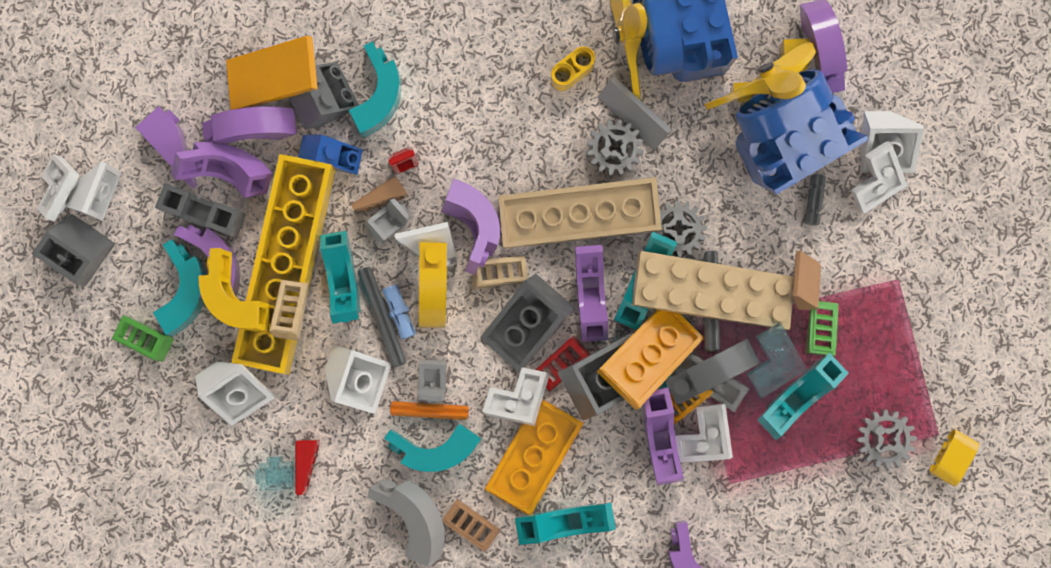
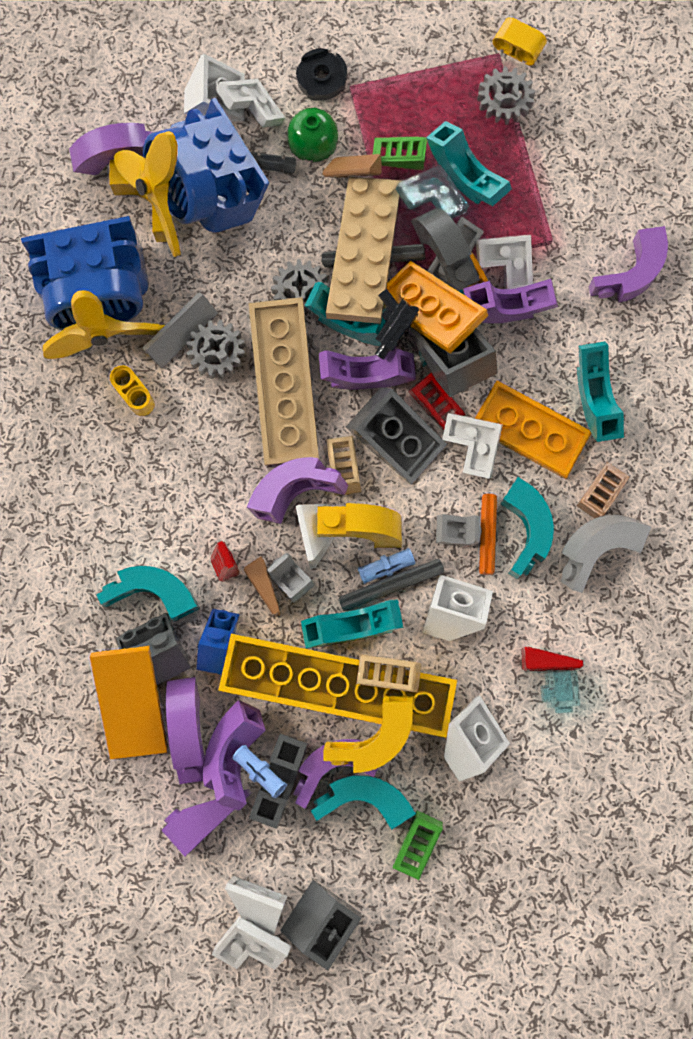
camera: 90 degrees left, 5 degrees down
(205, 192) = (259, 771): none -> light blue pin
(633, 321) = (398, 318): none -> black piece
(844, 242) = (312, 135): none -> green cylinder
(919, 237) = (326, 87): none -> black plate

